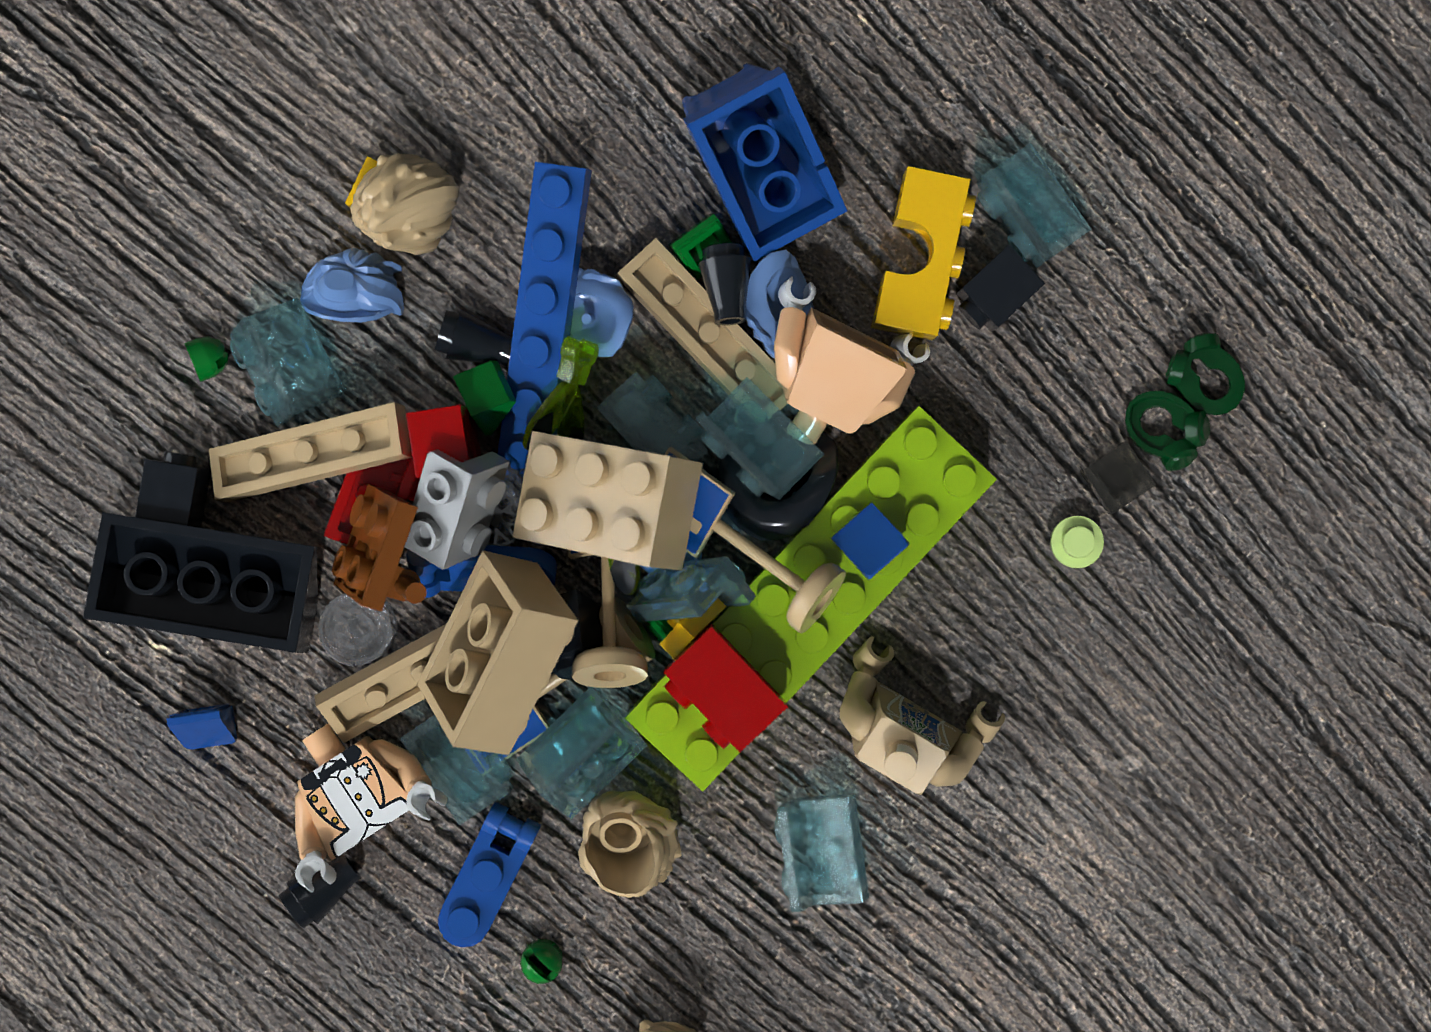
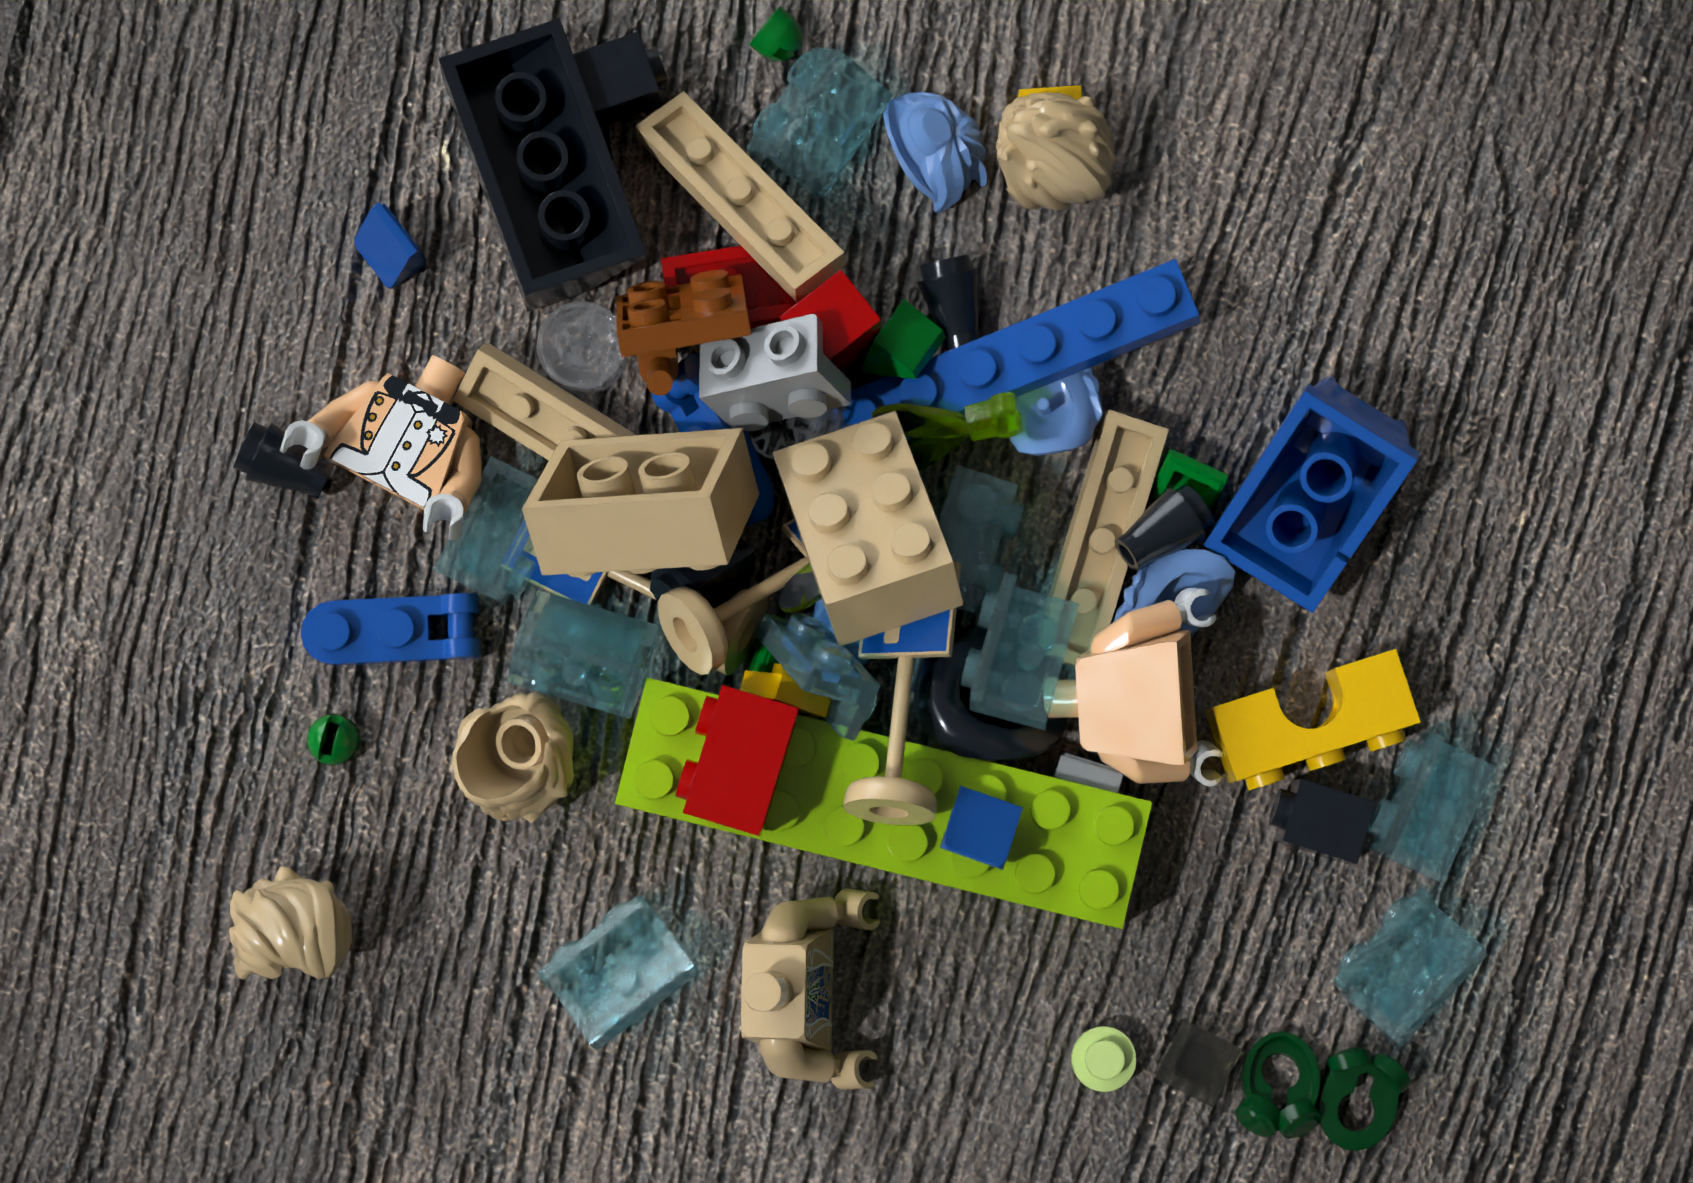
camera: 60 degrees right, 5 degrees down
(870, 439) = (1087, 773): none -> light grey tile
(1136, 288) = (1407, 966): none -> clear light blue bracket

